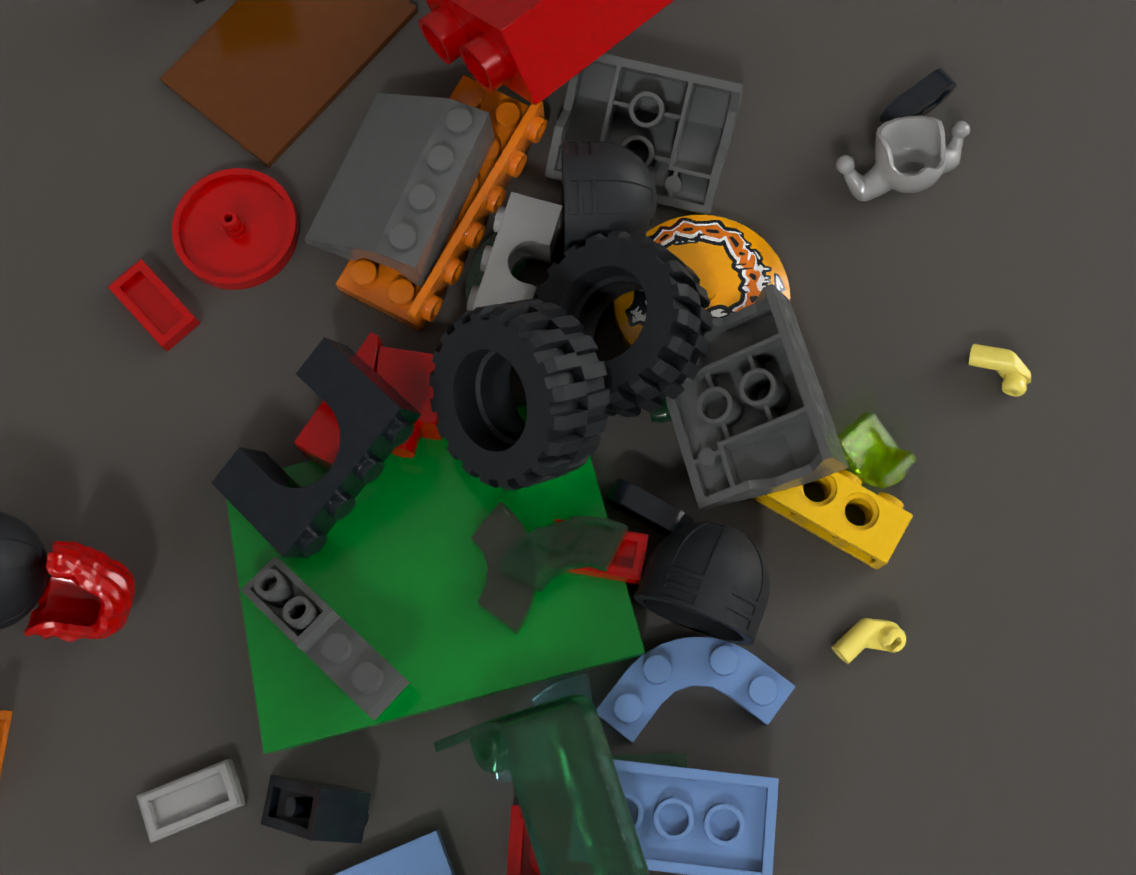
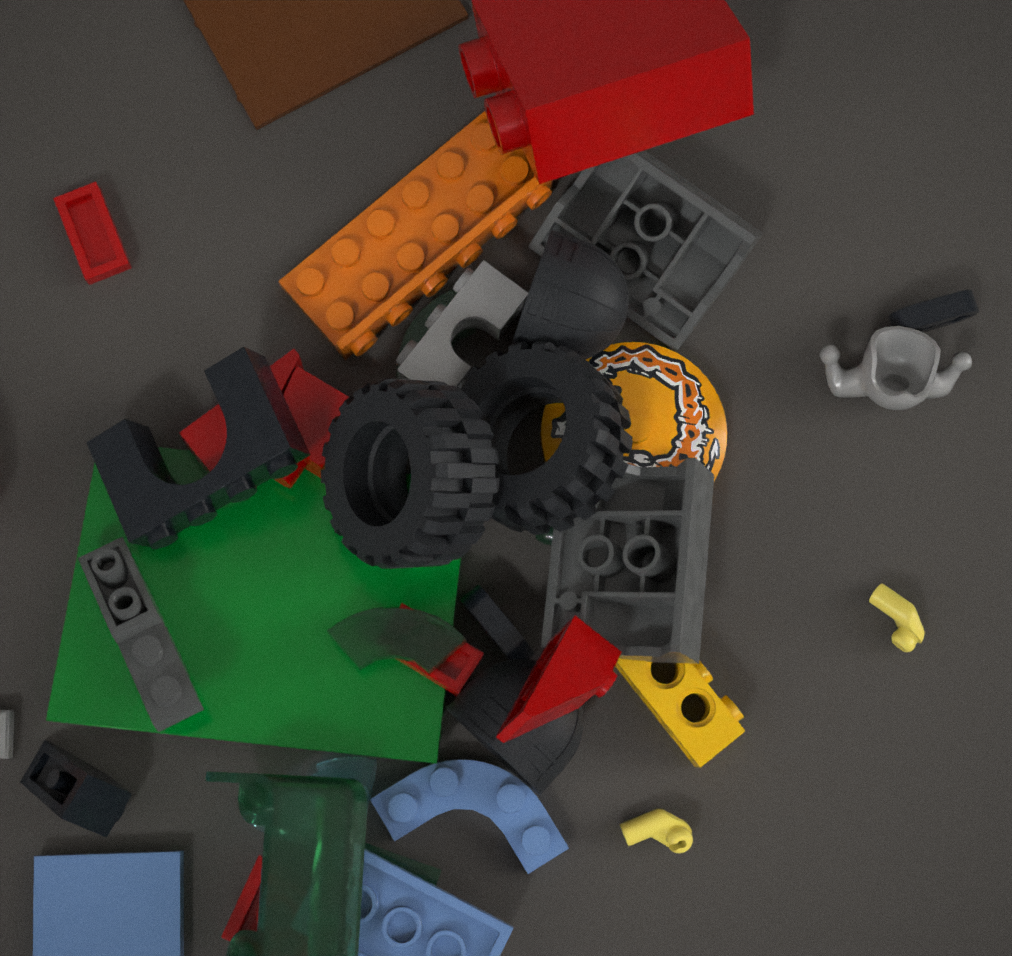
camera: 10 degrees right, 5 degrees up
(235, 228) = (200, 184): red piece -> none
(404, 182) = (381, 206): dark grey piece -> none
(503, 596) = (323, 658): clear smoke tile -> none
(734, 522) = (565, 676): none -> red slope
(873, 452) = (736, 654): clear neon green bracket -> none

